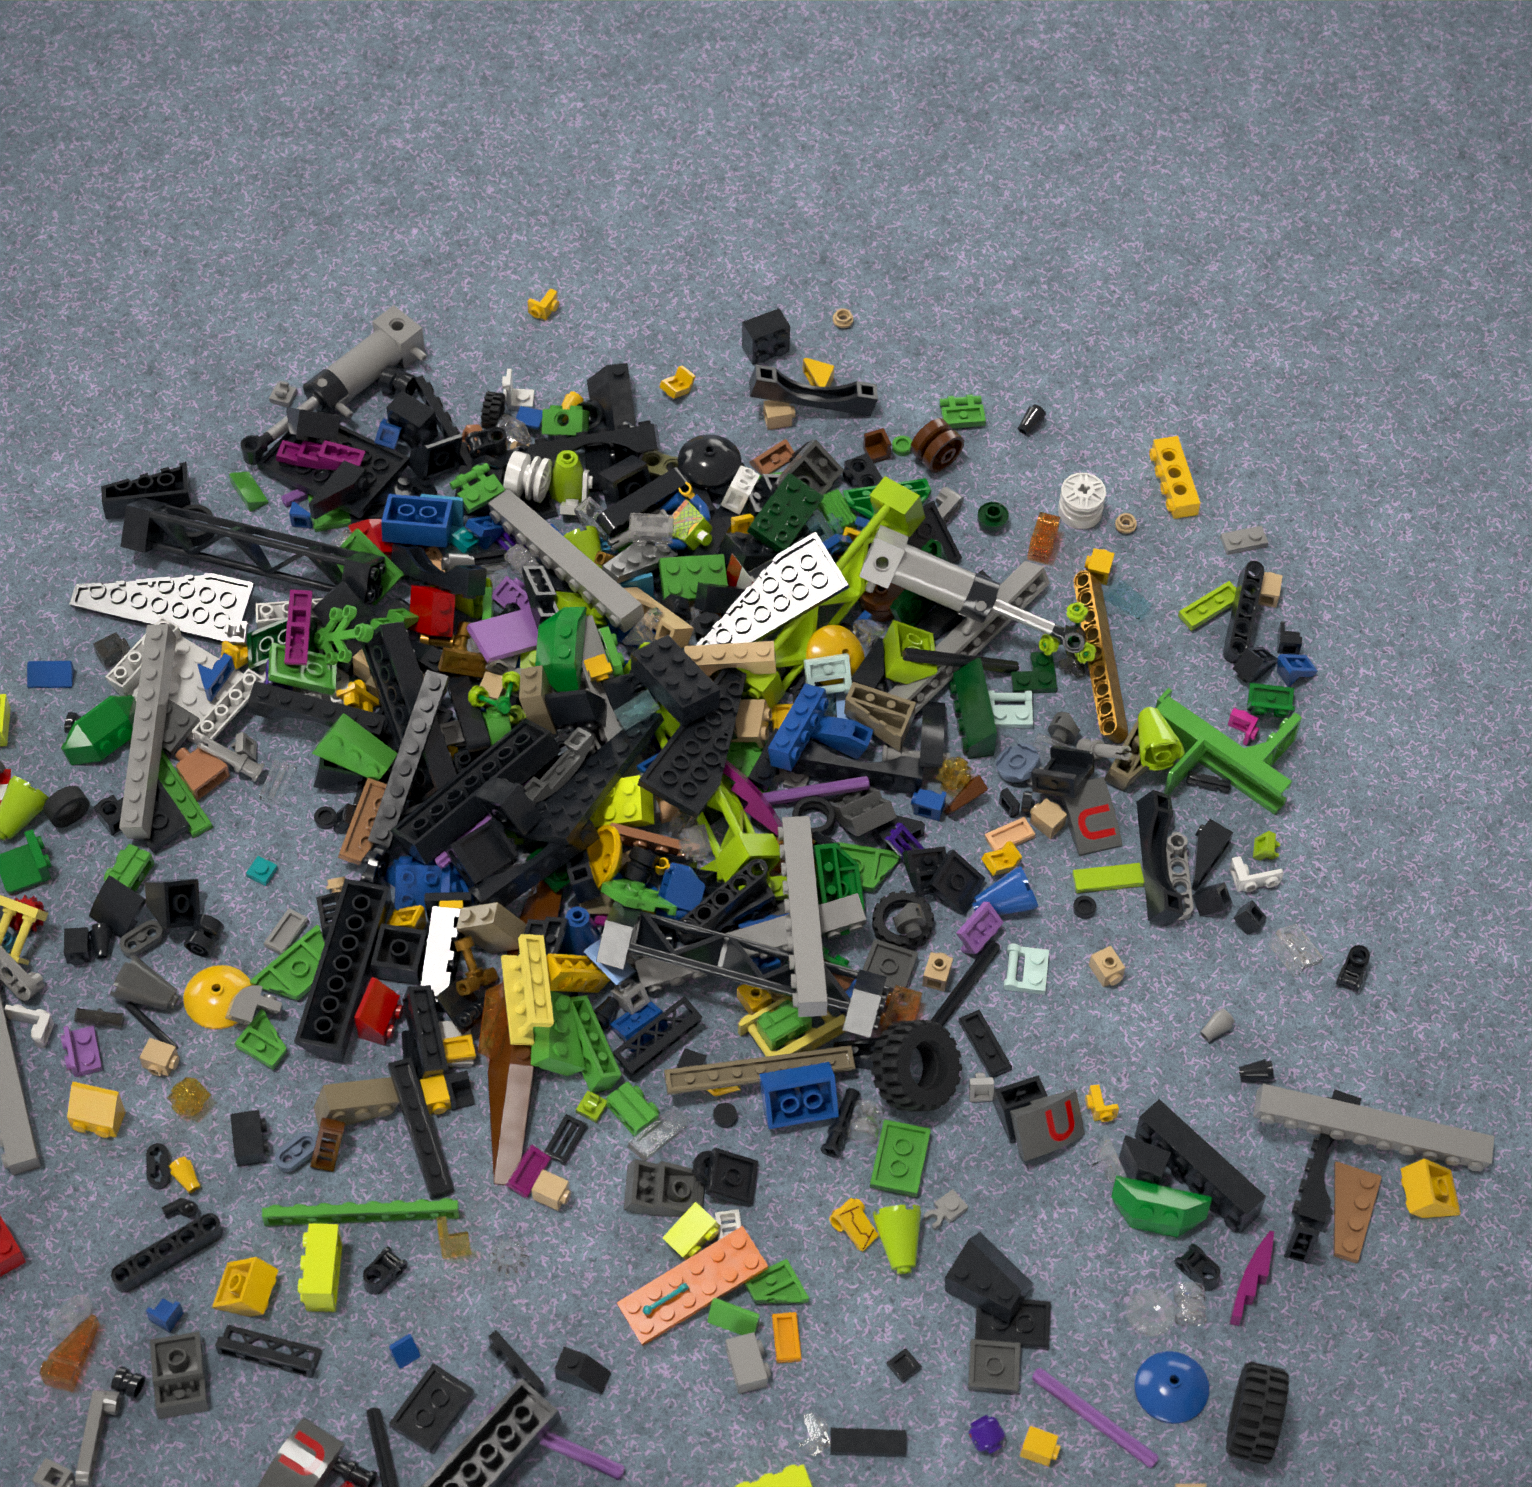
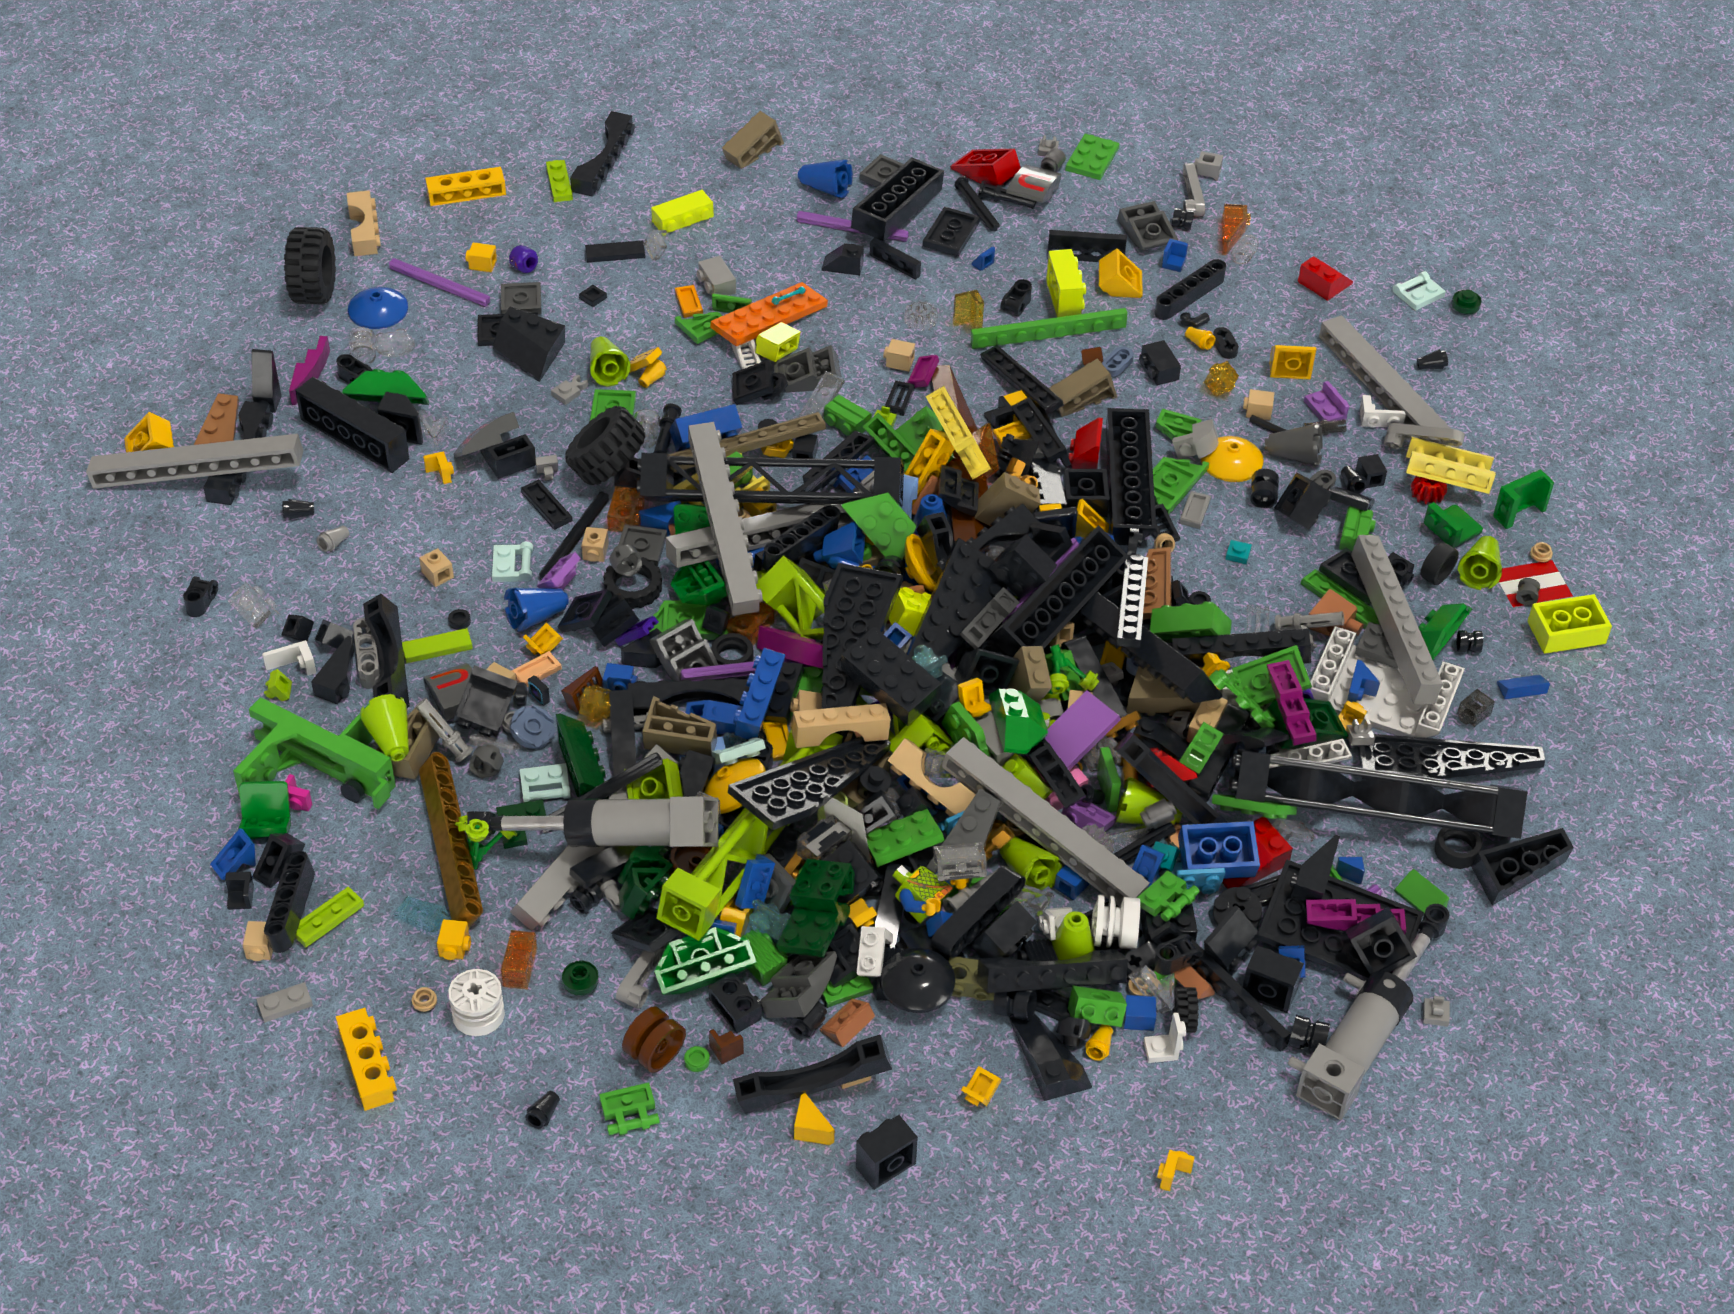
camera: 170 degrees right, 10 degrees down
(843, 314) = (792, 1209): tan plate -> none

